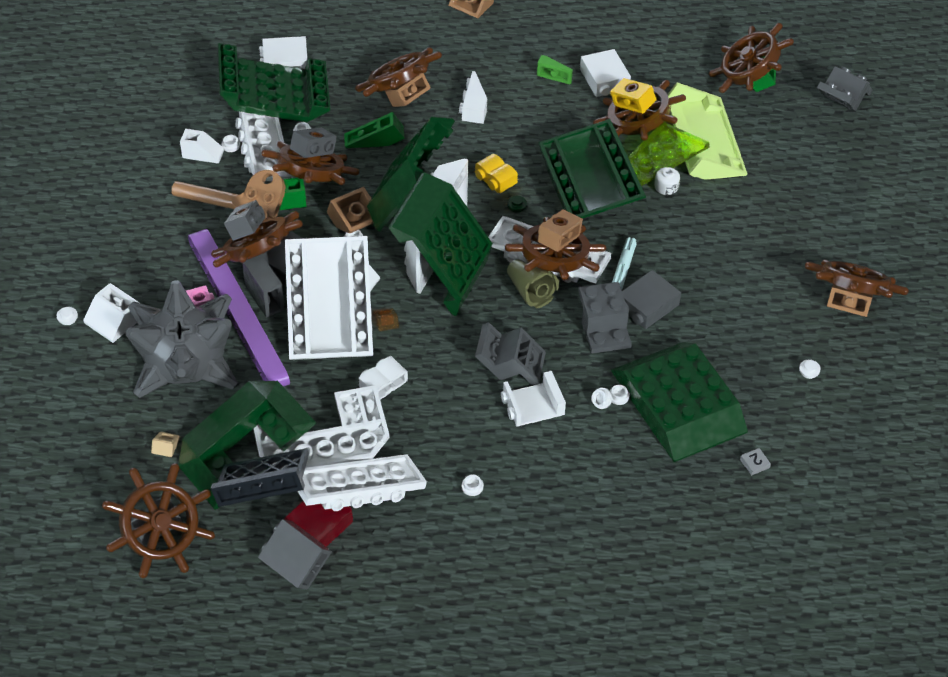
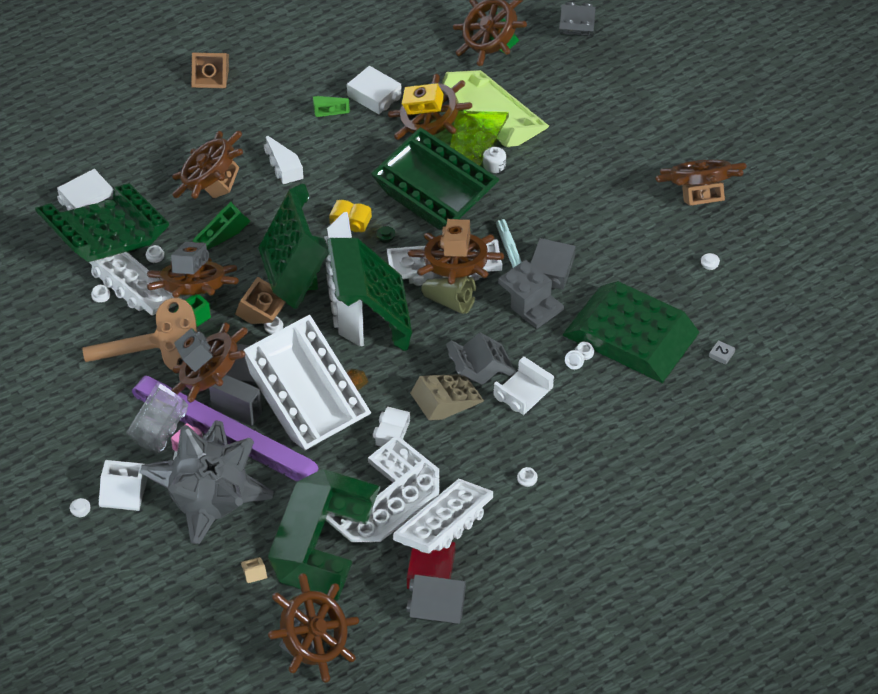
camera: 30 degrees left, 0 degrees up
(183, 262) = (157, 419): none -> clear slope
(200, 146) = (79, 308): white slope -> none
(256, 486) = (377, 557): black fence -> none
(454, 372) = (444, 395): none -> dark tan slope

